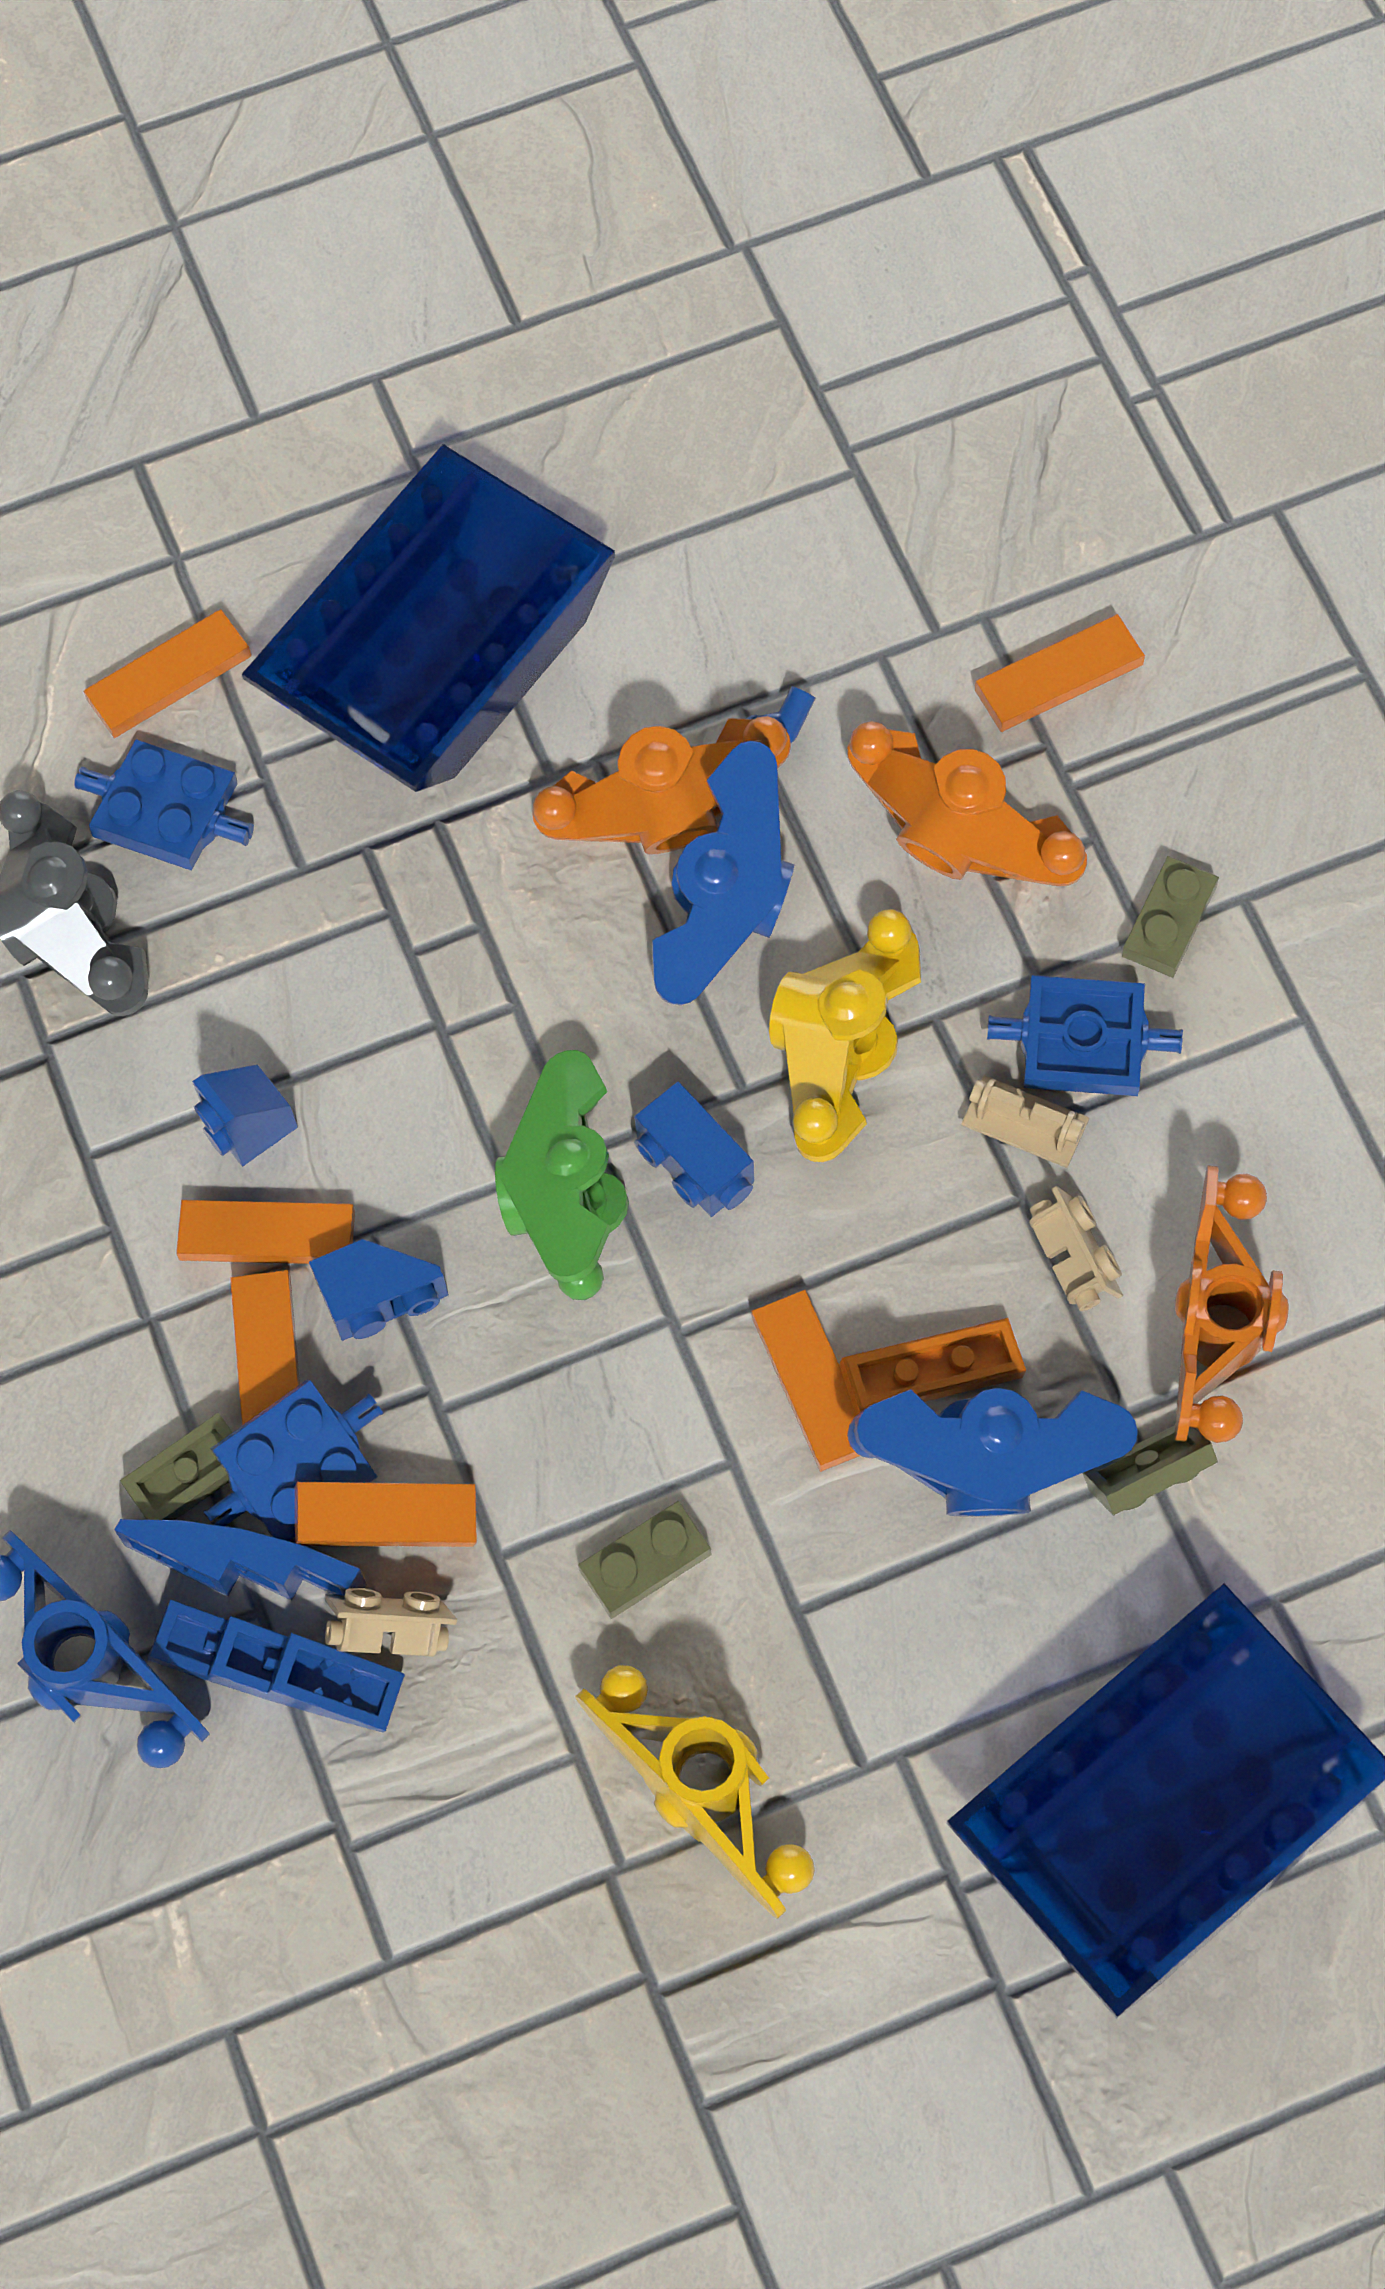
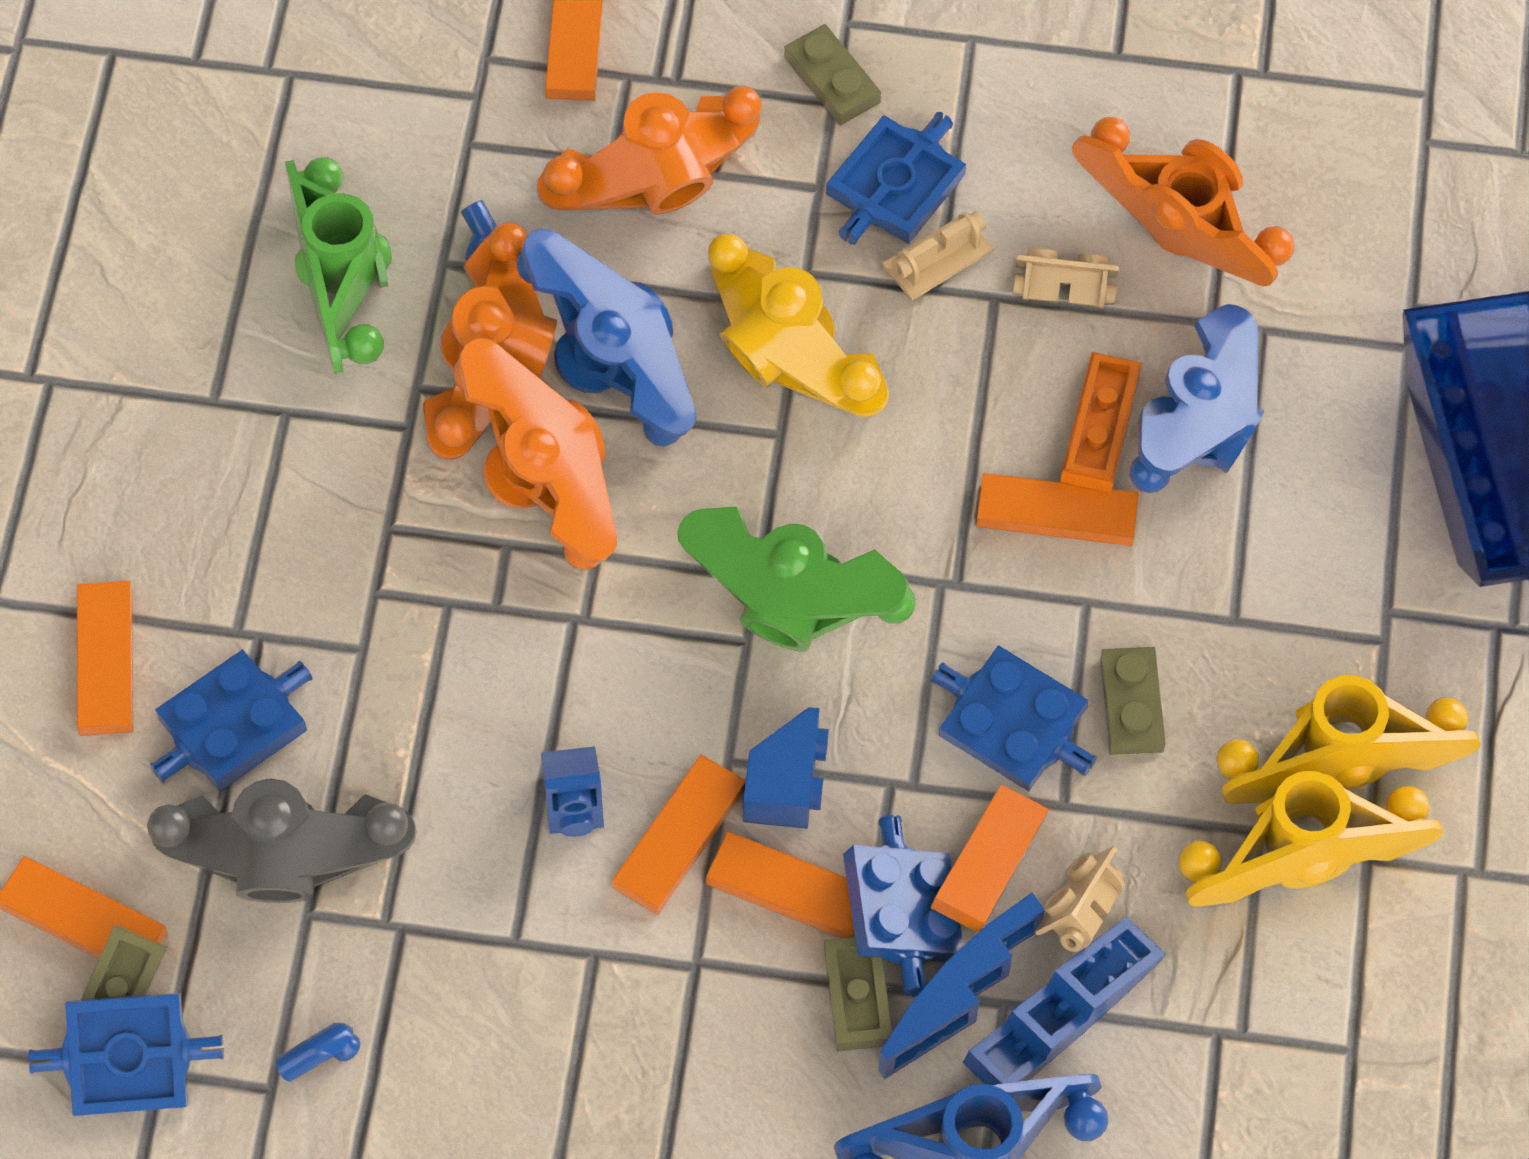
camera: 65 degrees left, 5 degrees down
(435, 622) = (222, 420): clear blue slope -> none
(491, 1712) = (1309, 857): none -> yellow piece
(557, 1460) = (1013, 718): none -> blue plate
(563, 890) = (544, 451): none -> orange piece
(640, 626) = (342, 269): none -> bright green piece
(695, 1151) = (820, 485): blue brick -> none
(1149, 1469) = (1276, 319): olive plate -> none

